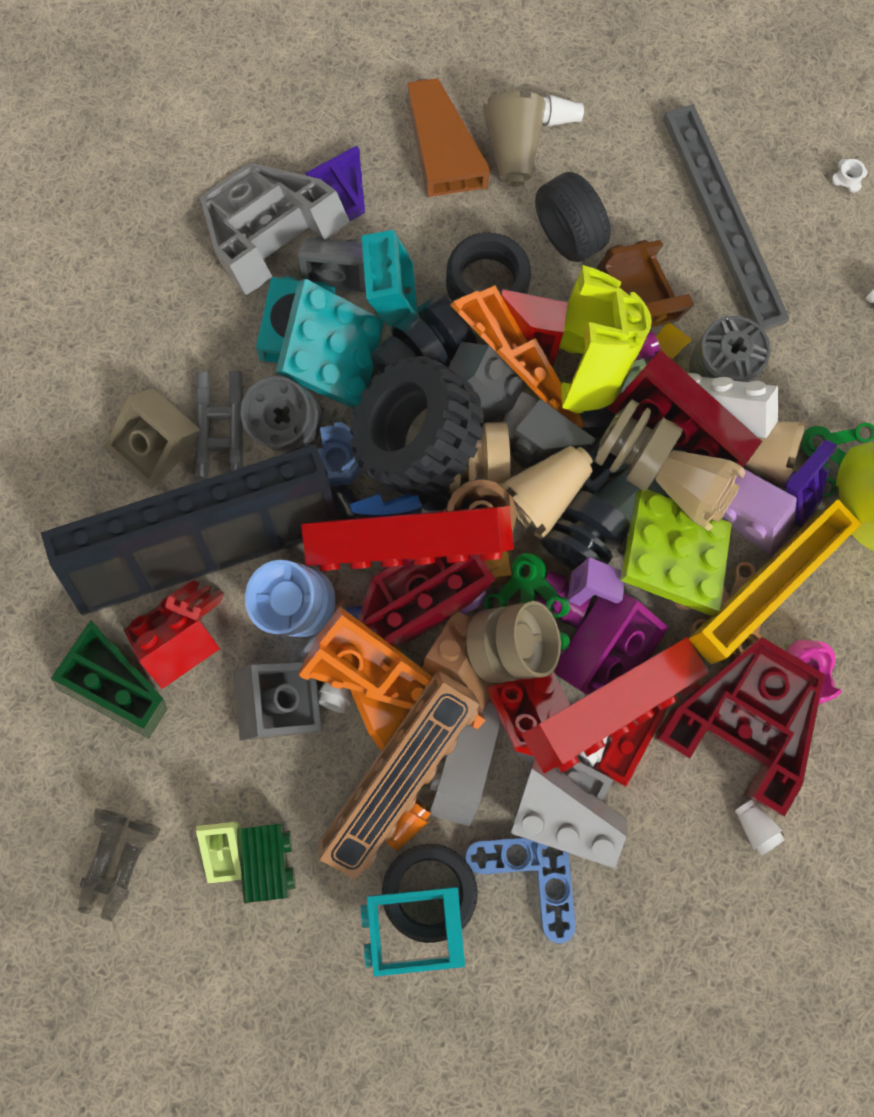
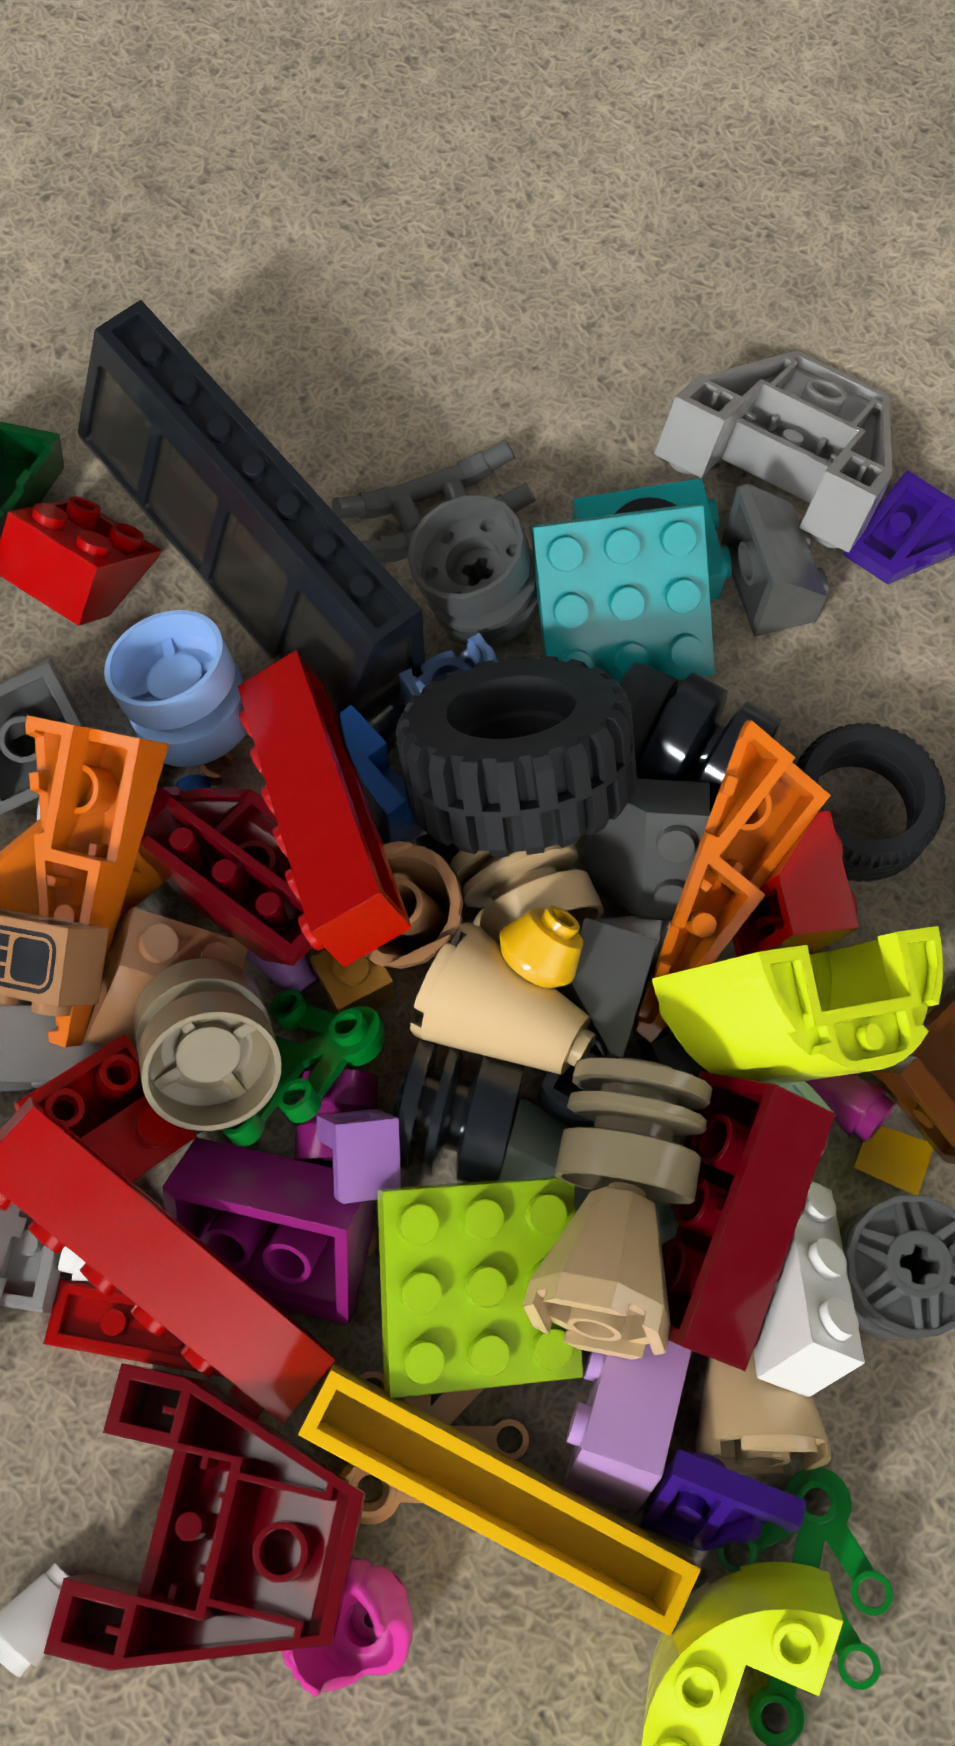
camera: 75 degrees right, 5 degrees down
(151, 436) = (383, 420): dark tan slope -> none
(188, 597) = (140, 552): red tile -> none
(388, 275) = (785, 600): teal window -> none
(527, 453) = (543, 946): none -> yellow cone

